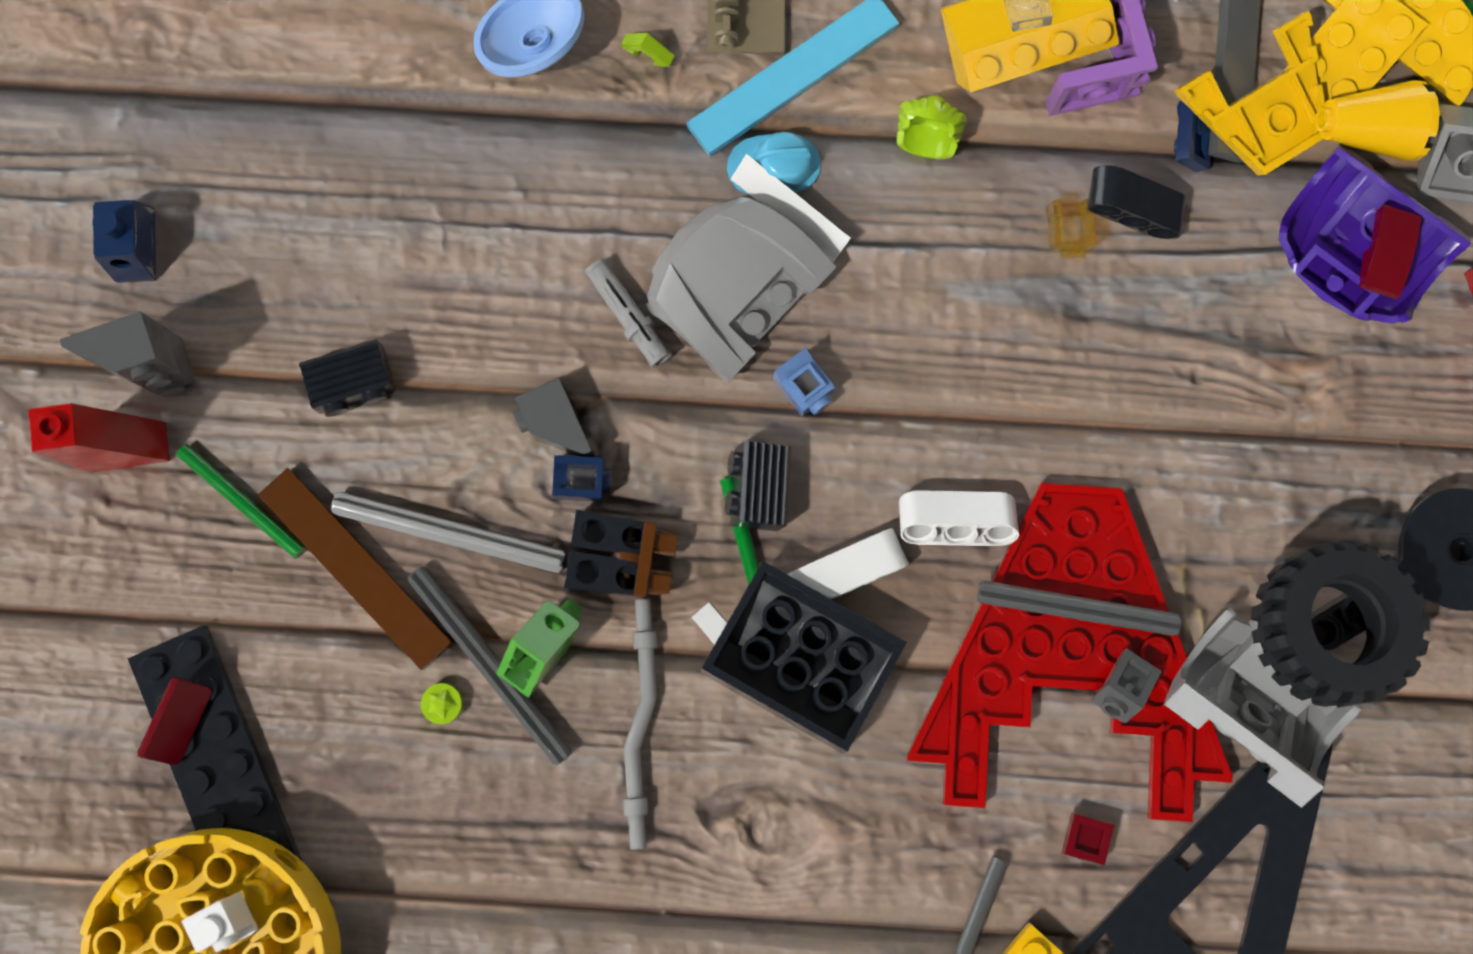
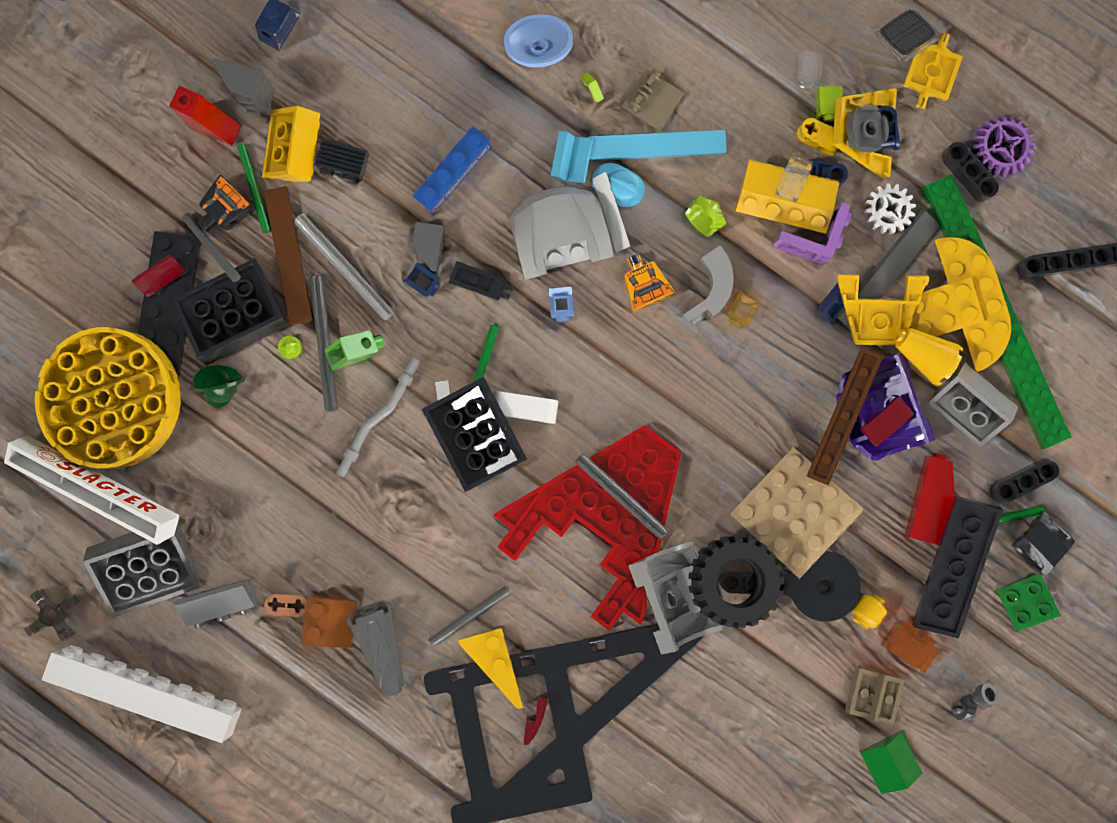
camera: 30 degrees right, 5 degrees up
(211, 554) = (223, 206): none -> torso
(220, 924) = (123, 384): white brick -> none
(230, 628) = (211, 247): none -> dark grey bar
(257, 401) = (291, 144): none -> yellow slope
(317, 708) = (229, 314): none -> black slope
(366, 828) = (217, 383): none -> dark green helmet
(521, 291) = (452, 170): none -> blue brick
(630, 560) = (423, 335): black hips -> none
(637, 326) = (499, 240): light grey pin -> none
(664, 427) = (479, 281): none -> black hinge
(684, 167) = (571, 158): none -> medium azure panel
(759, 486) = (506, 339): black brick -> none
(907, 278) = (645, 283): none -> torso
(958, 518) = (592, 416): white beam -> none
(1014, 206) = (721, 279): none -> light grey arch
(1087, 839) = (554, 606): dark red plate -> none
(1126, 687) = (618, 547): dark grey bracket -> none
(1136, 202) = (781, 318): black beam -> none
(1325, 282) = (845, 415): none -> reddish brown tile
(1347, 467) = (795, 513): none -> tan plate

